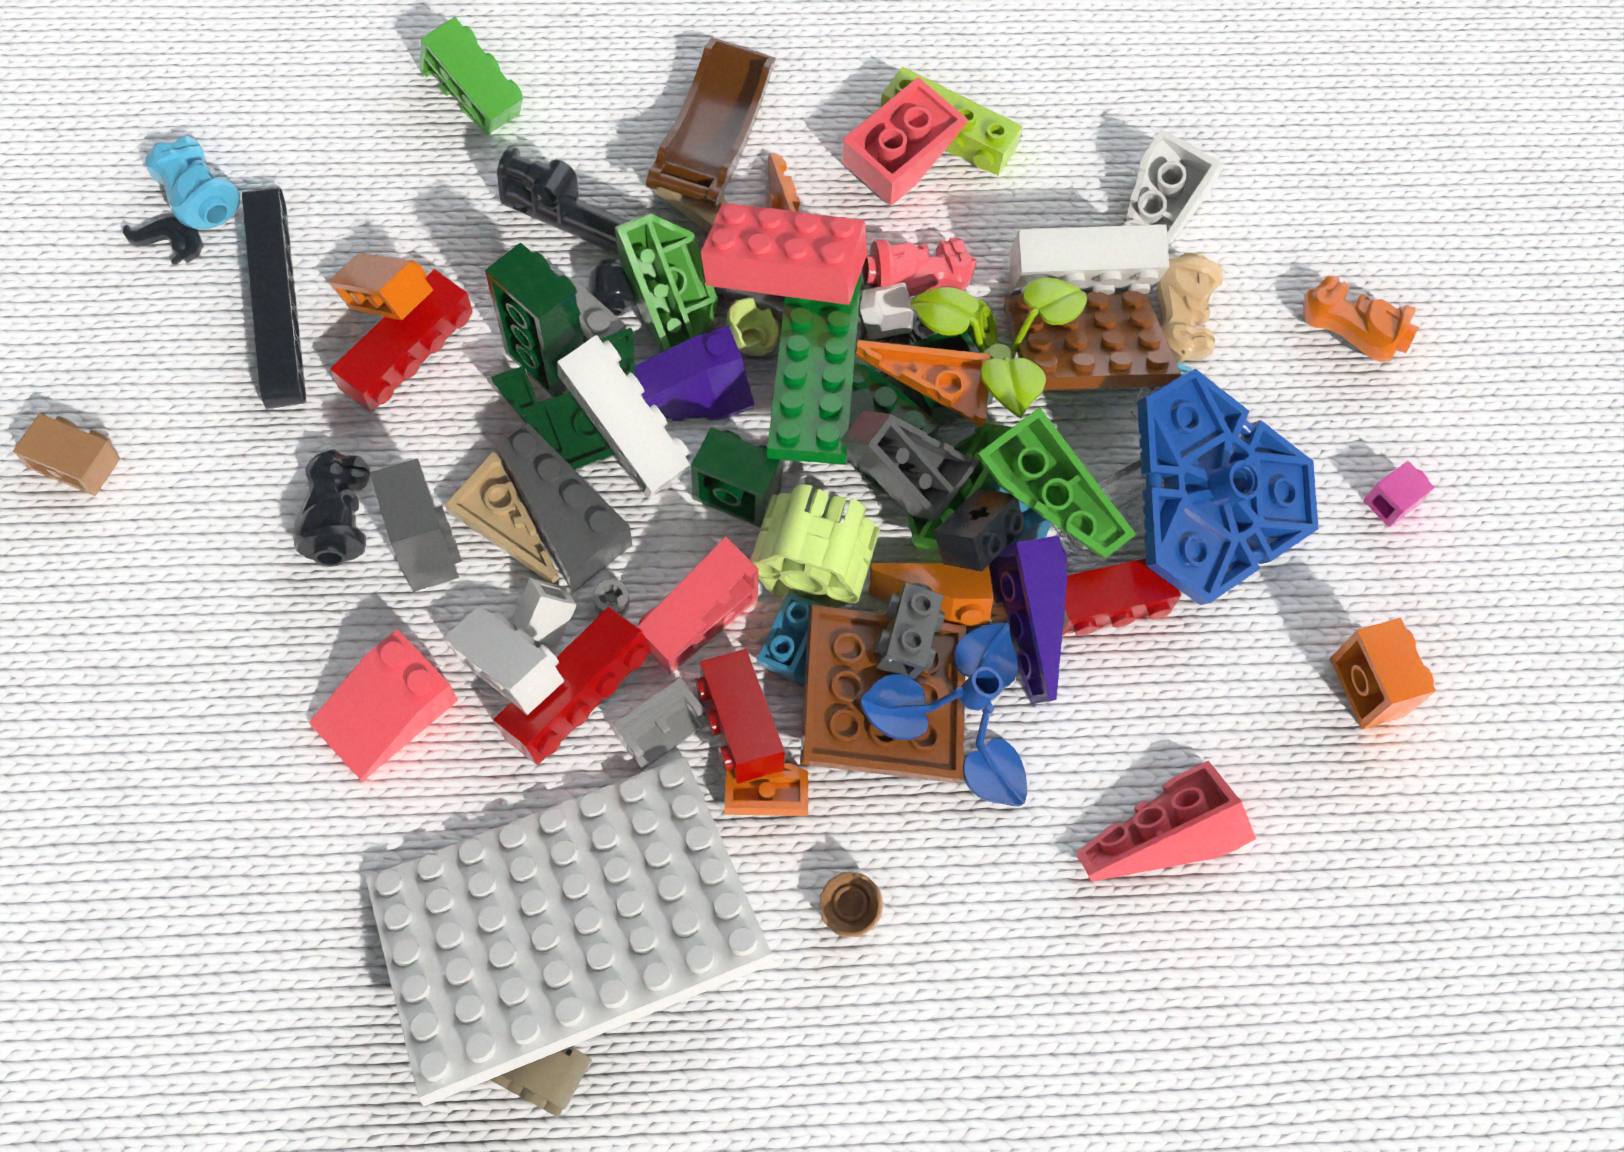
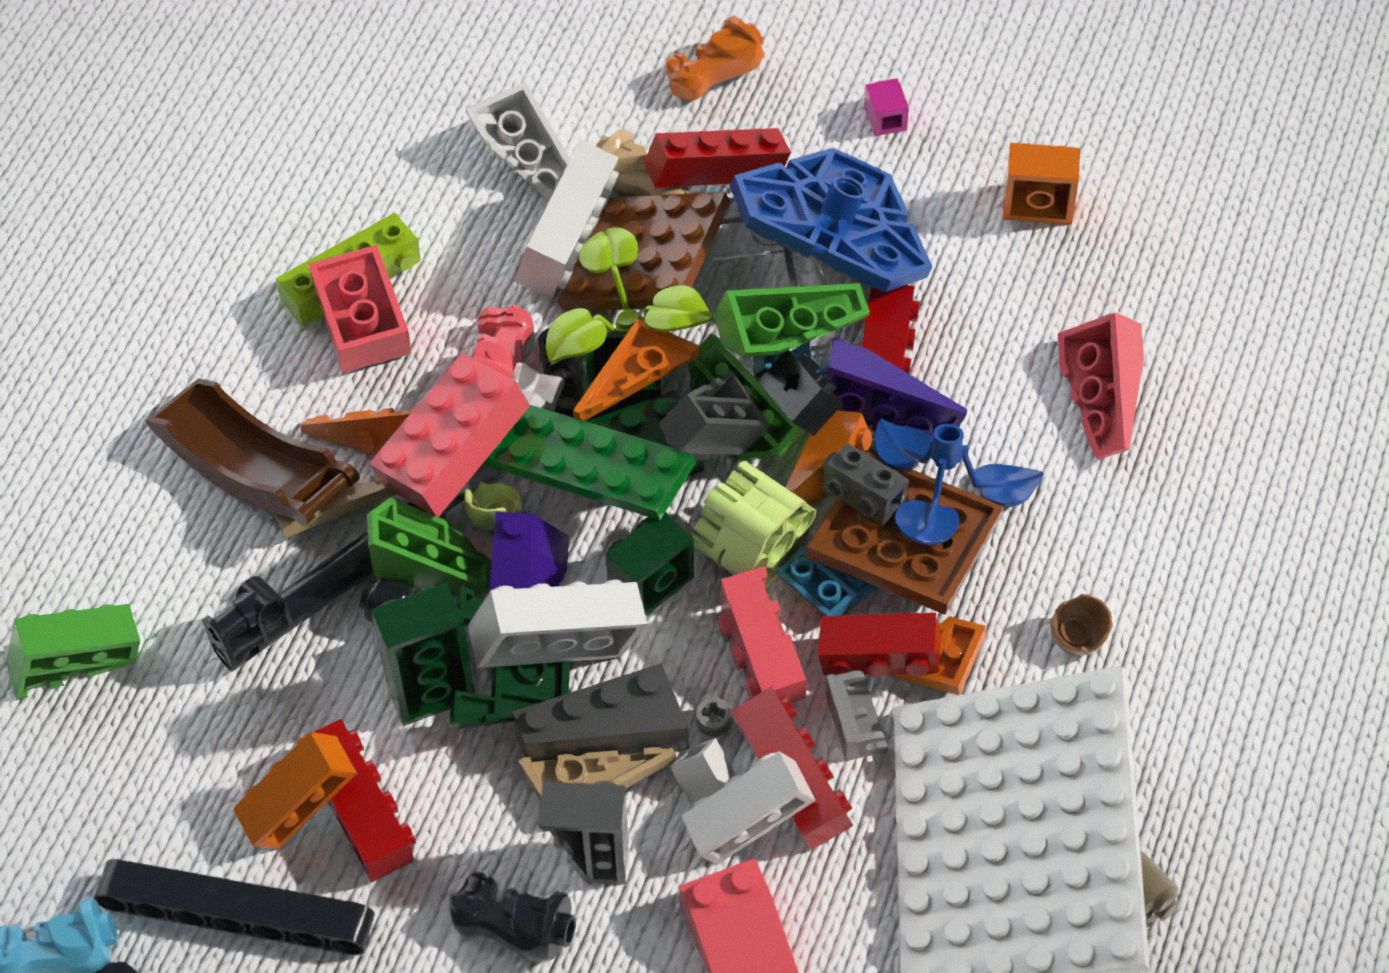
camera: 60 degrees left, 10 degrees down
(1233, 356) = (712, 156): none -> red brick

